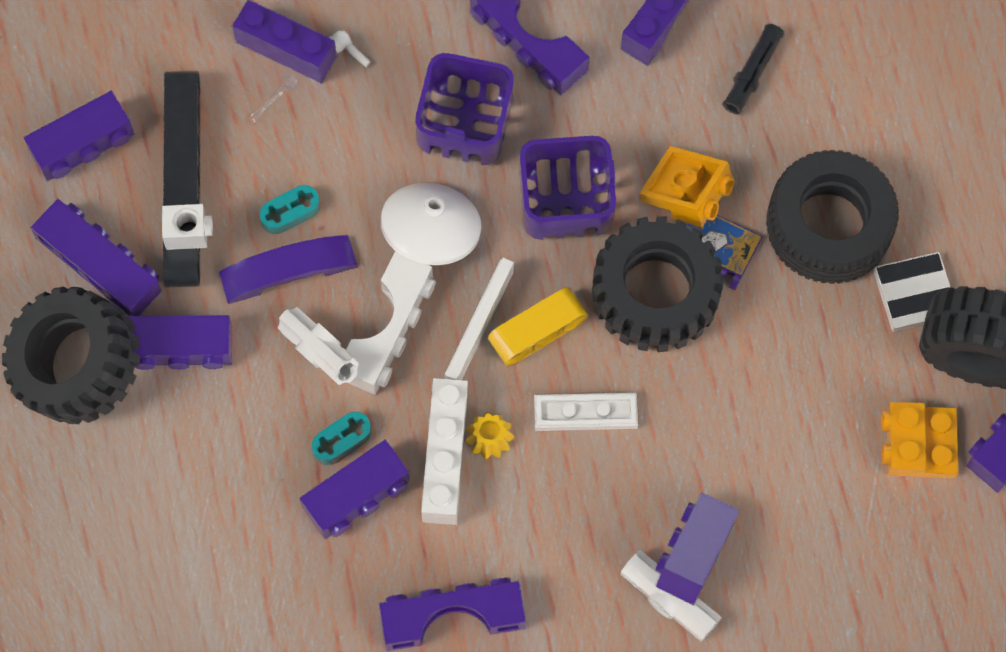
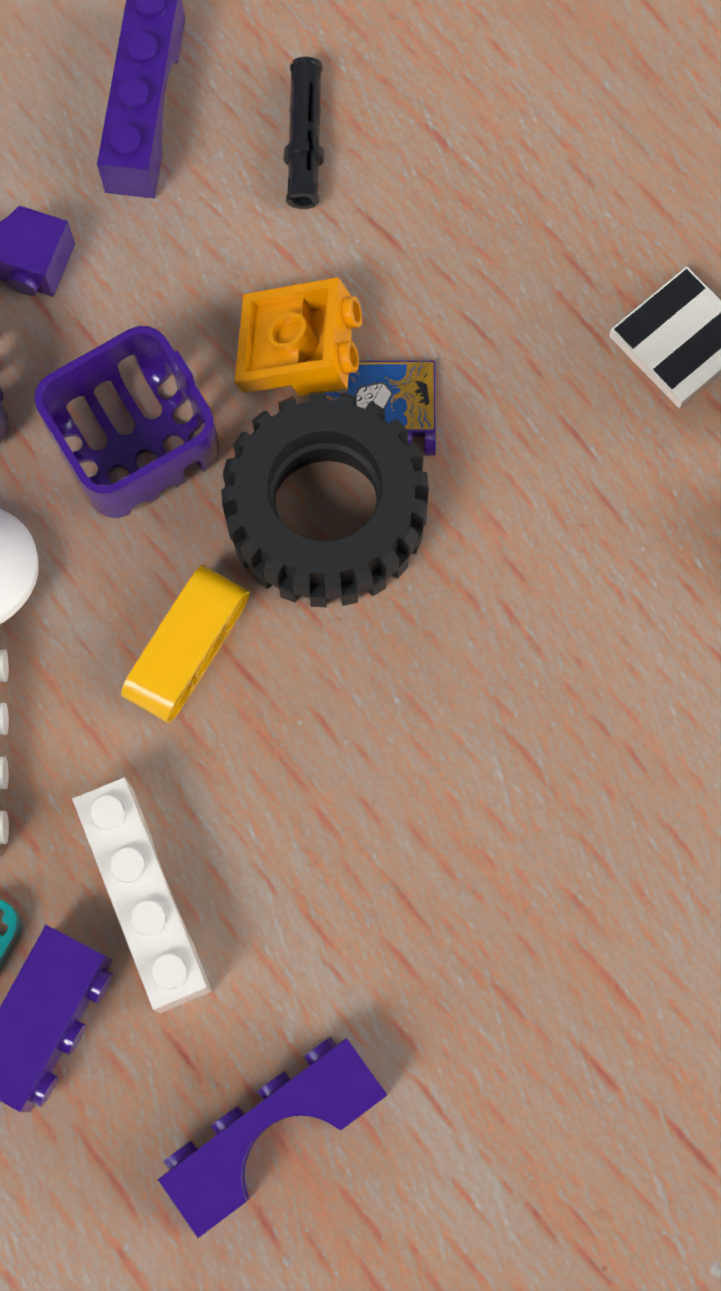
camera: 25 degrees left, 5 degrees up
(480, 320) = (98, 678): white tile -> none
(489, 435) = (194, 835): yellow piece -> none
(585, 411) = (314, 732): white tile -> none
(695, 547) = (576, 859): brick -> none
(696, 619) = (571, 942): white piece -> none
(841, 176) = (534, 223): black tyre -> none

